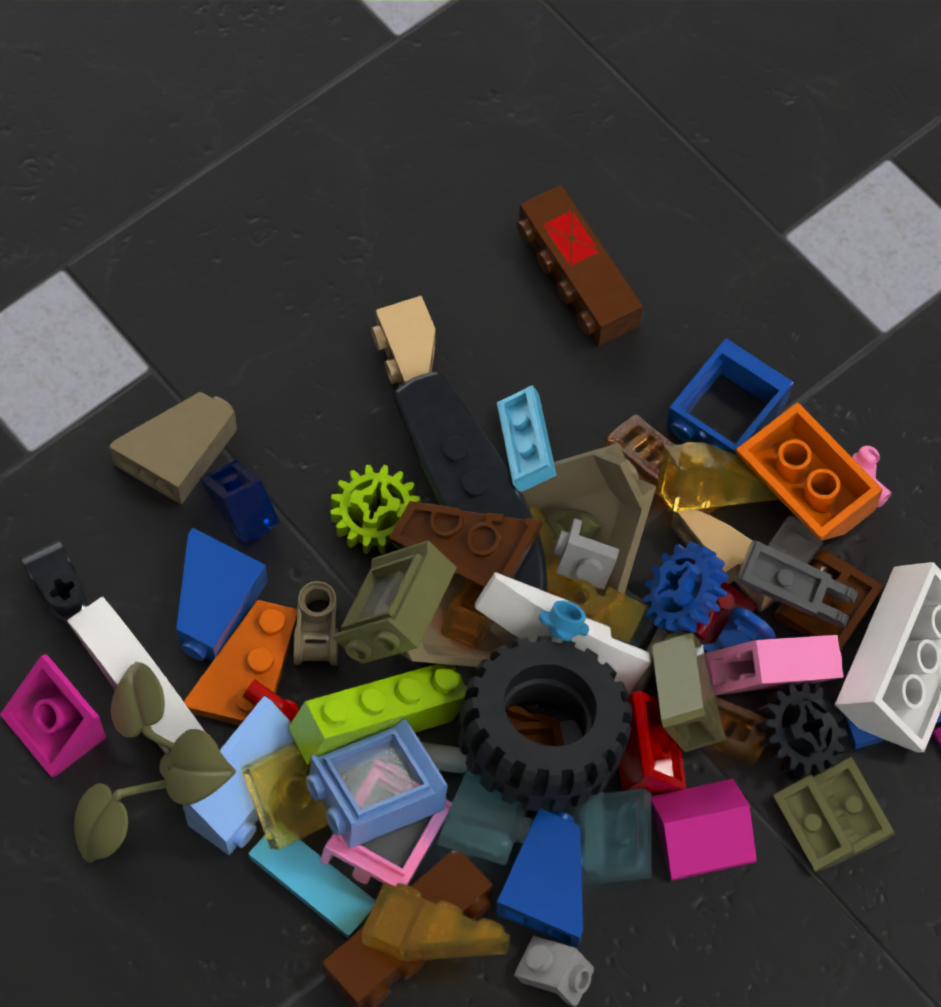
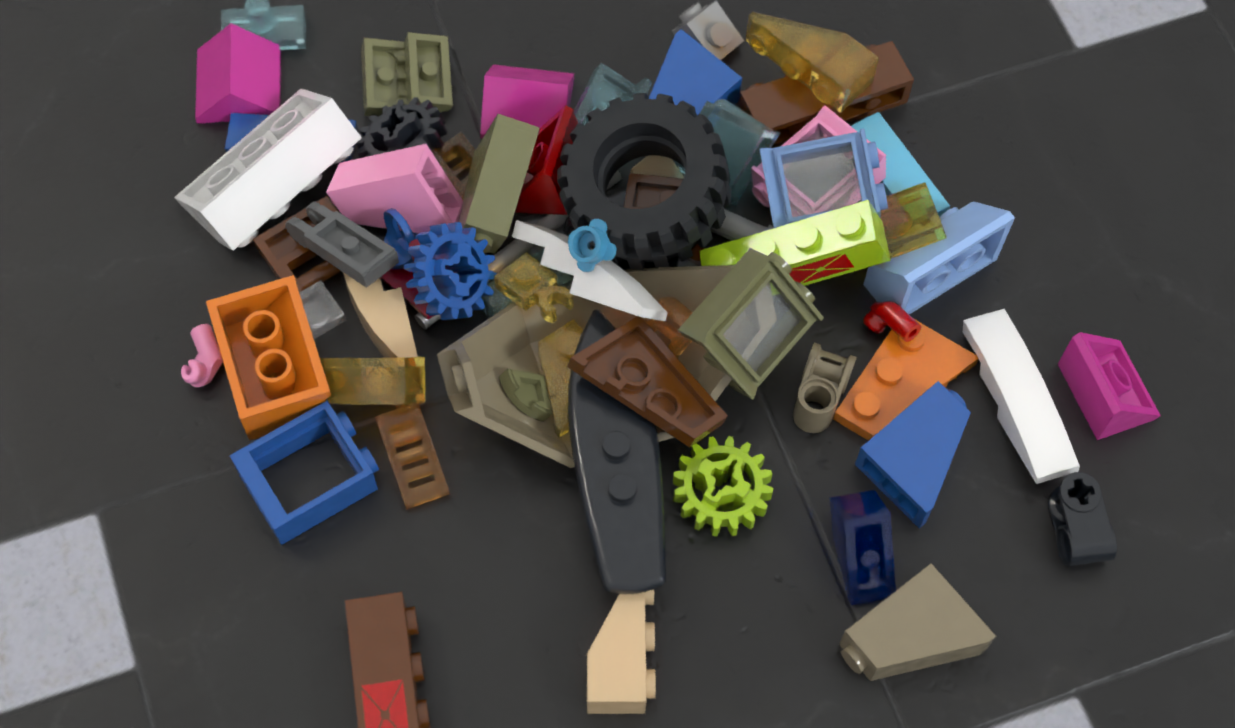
camera: 160 degrees left, 0 degrees up
(190, 768) = (1003, 225): olive plant -> none
(526, 439) = (538, 494): medium azure tile -> none
(584, 557) = (549, 344): light grey bracket -> none

